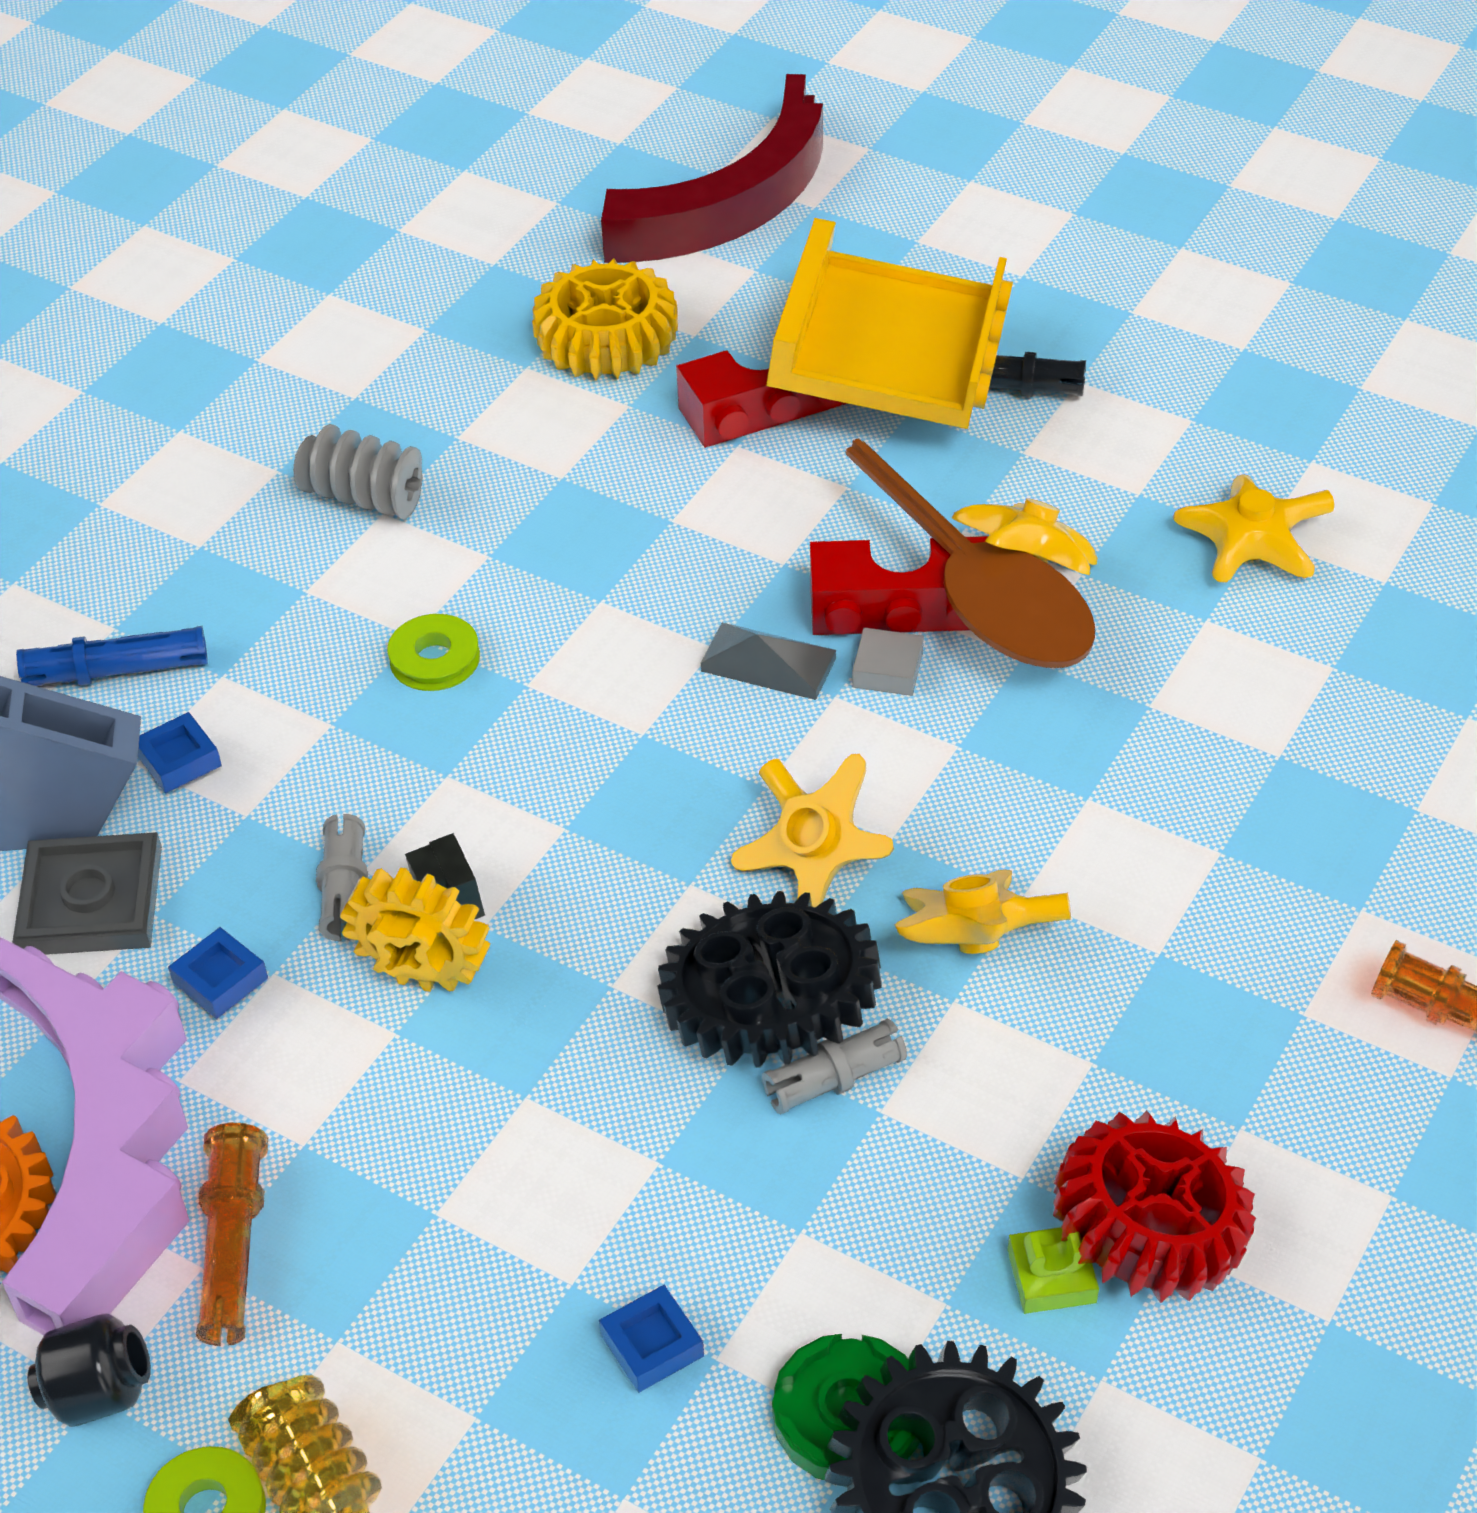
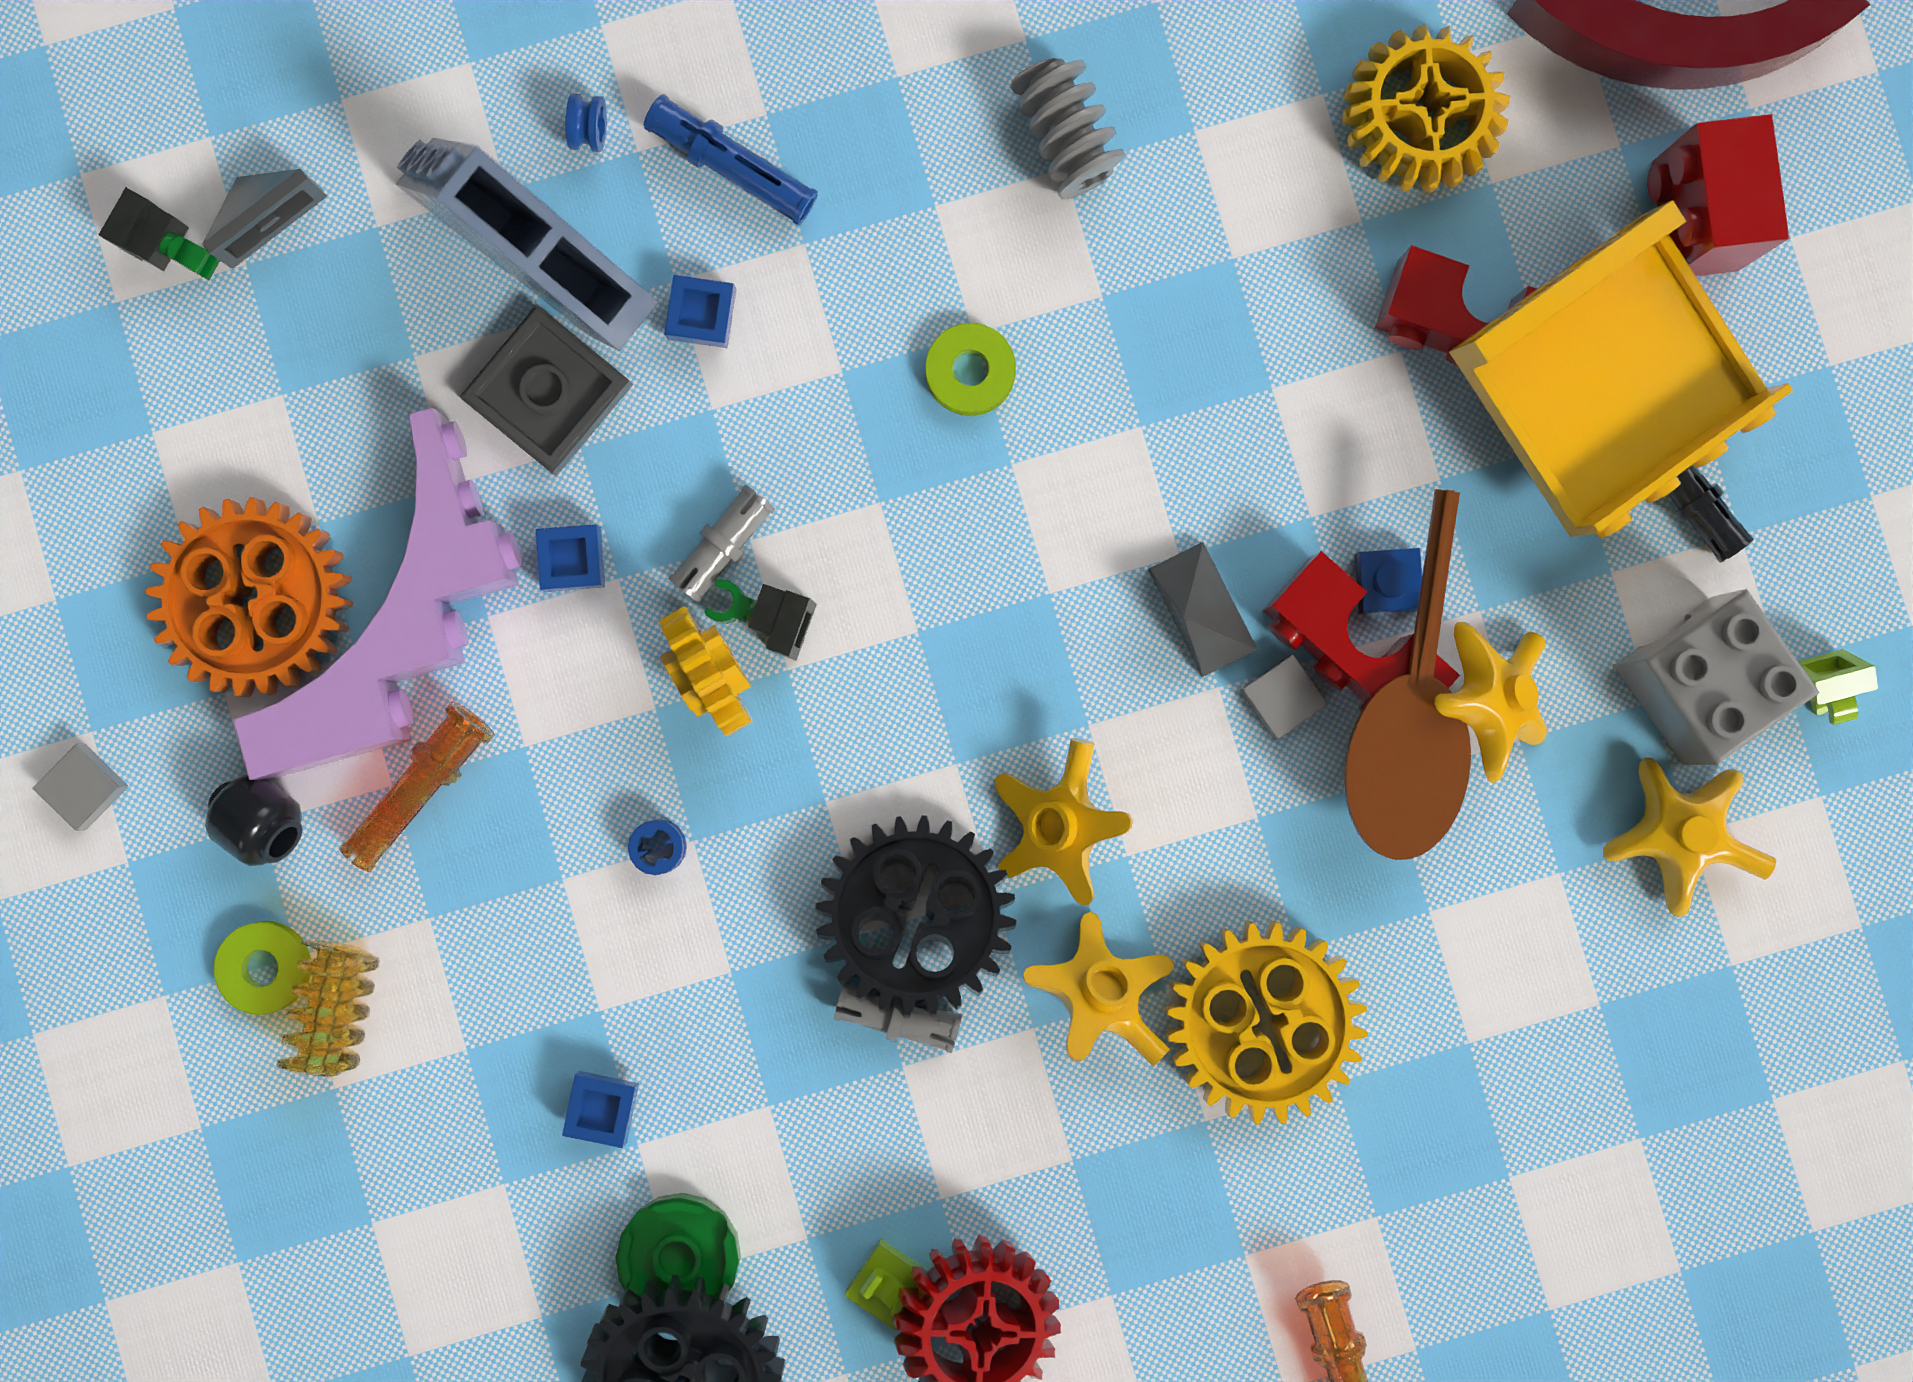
camera: 40 degrees right, 40 degrees up
(501, 1133) = (663, 864): none -> blue bush
(864, 204) = (1727, 190): none -> red brick
(890, 545) = (1390, 580): none -> blue plate
(1118, 839) = (1315, 998): none -> yellow gear
(1155, 430) = (1717, 679): none -> light grey piece
(1233, 394) = (1839, 678): none -> lime tile

